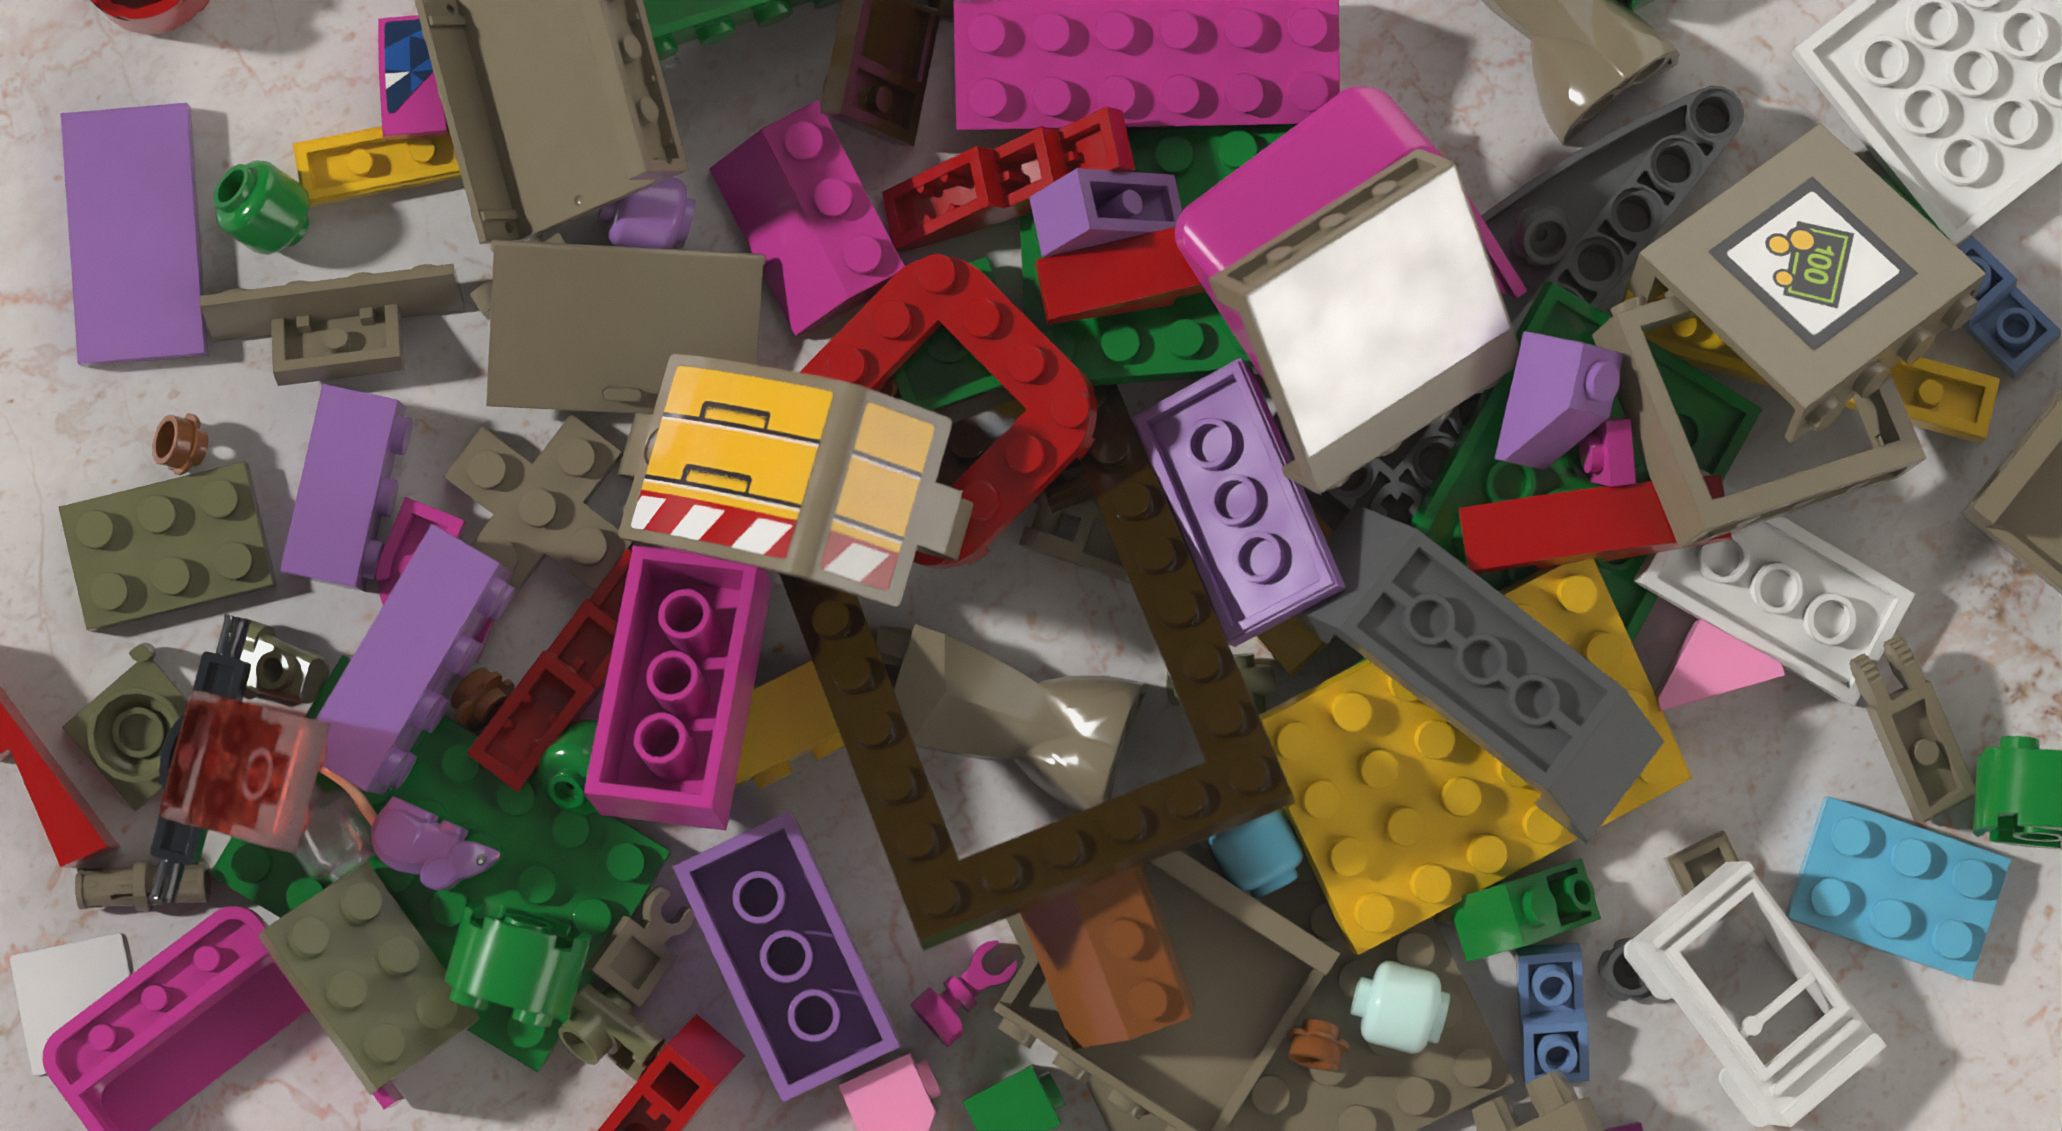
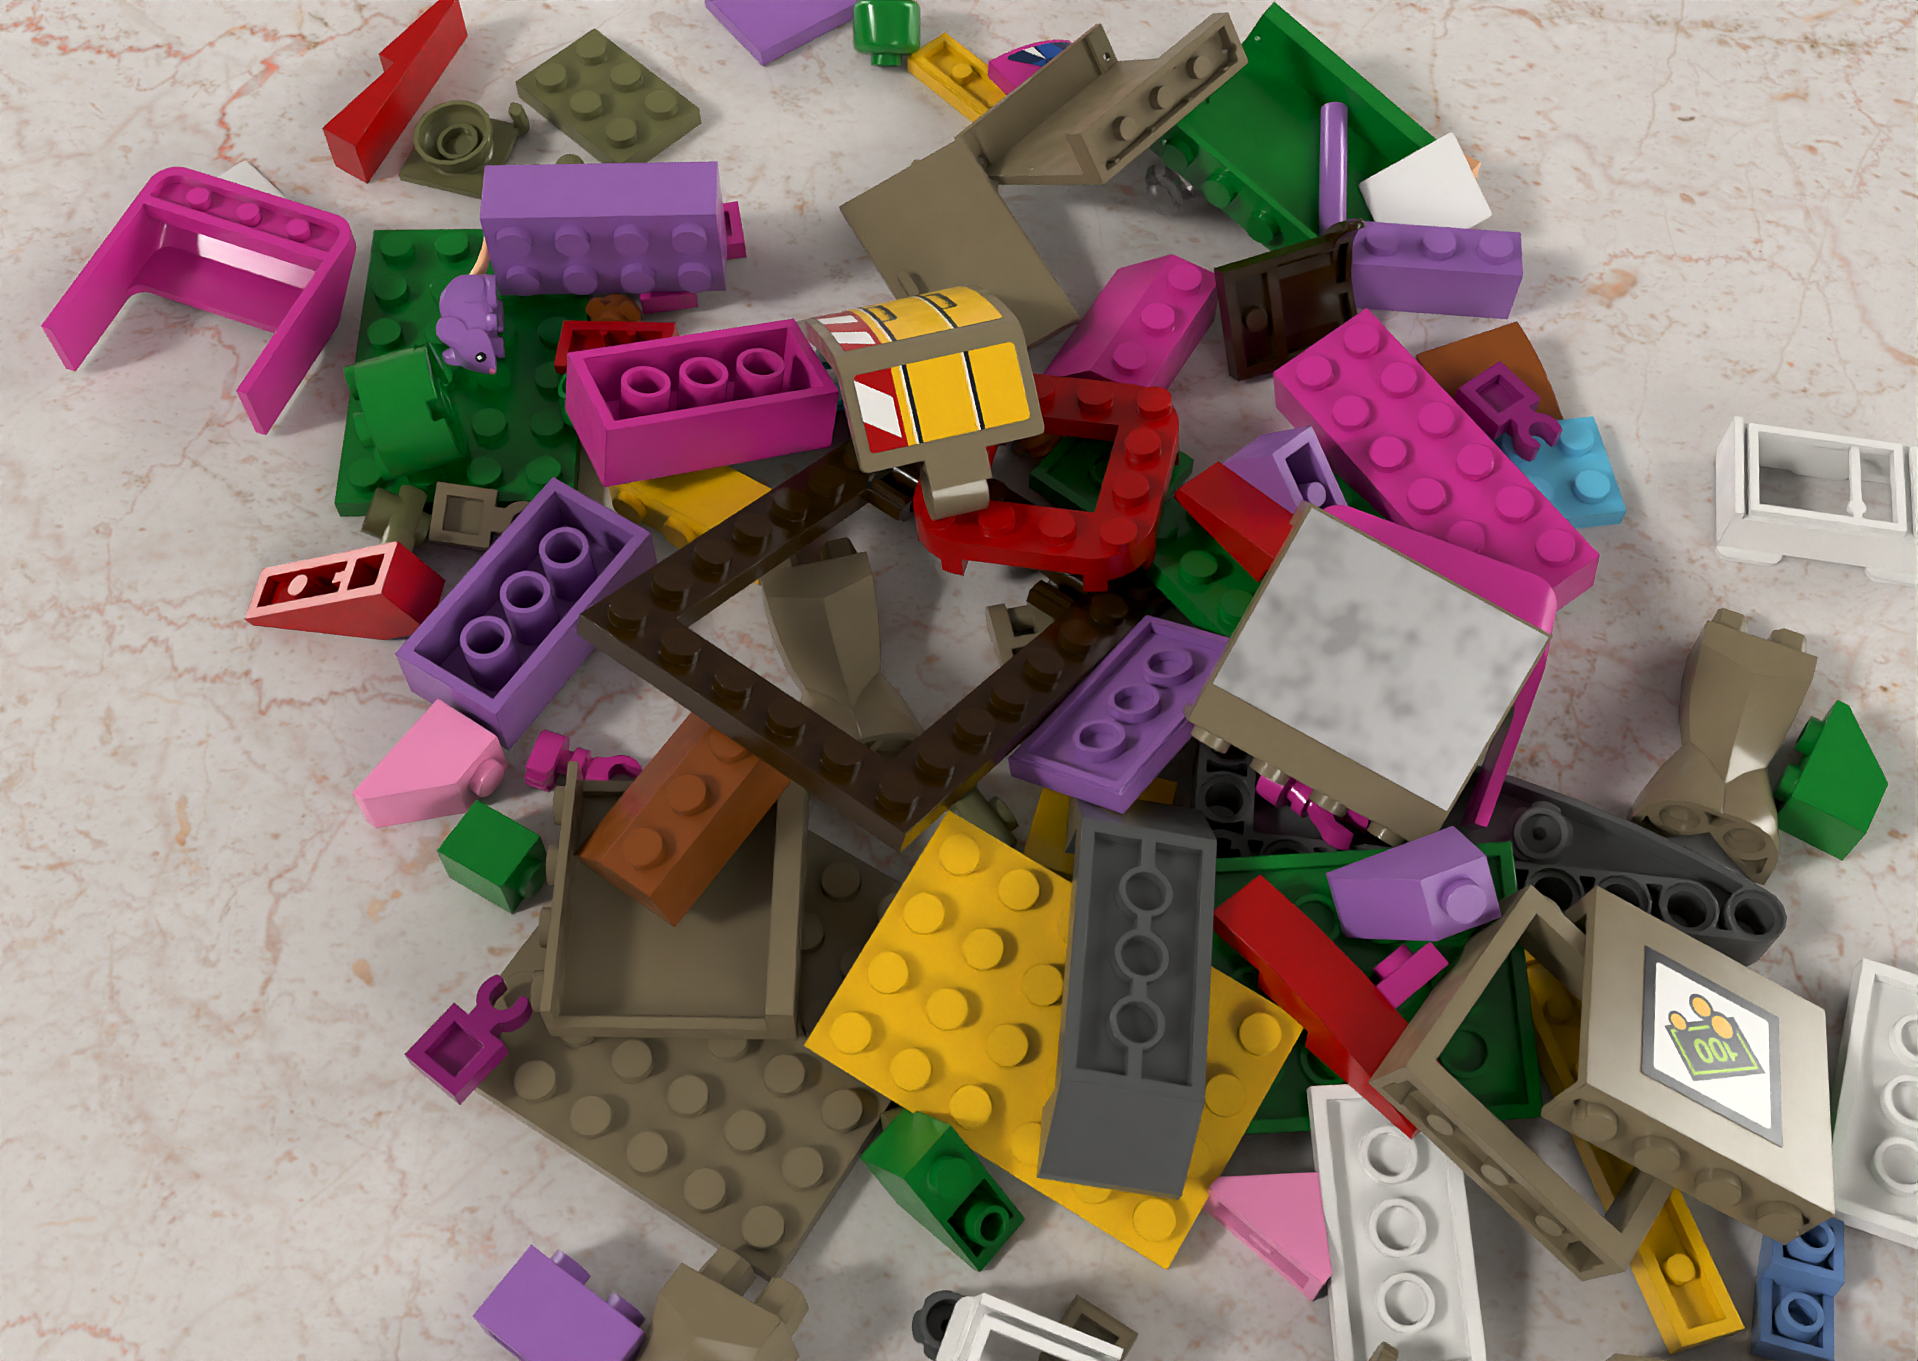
camera: 55 degrees right, 25 degrees down
(134, 884) = (341, 197): dark tan pin -> none
(180, 443) = (686, 68): dark orange plate -> none
(232, 767) = (445, 160): clear red piece -> none
(334, 324) = (838, 105): dark tan bracket -> none
(335, 837) = (438, 257): clear head -> none
(346, 488) = (755, 154): medium lavender brick -> none
(367, 977) = (337, 317): olive plate -> none
(543, 504) = (788, 281): dark tan plate -> none
(651, 217) = (1060, 236): medium lavender head -> none
(996, 184) = (1237, 414): red slope -> none
(1259, 854) = (845, 901): medium azure head -> none
(1317, 1045) = (698, 1062): dark orange plate -> none
(1401, 1007) = (778, 1114): light aqua head -> none
(1552, 1011) = (864, 1277): medium blue slope -> none

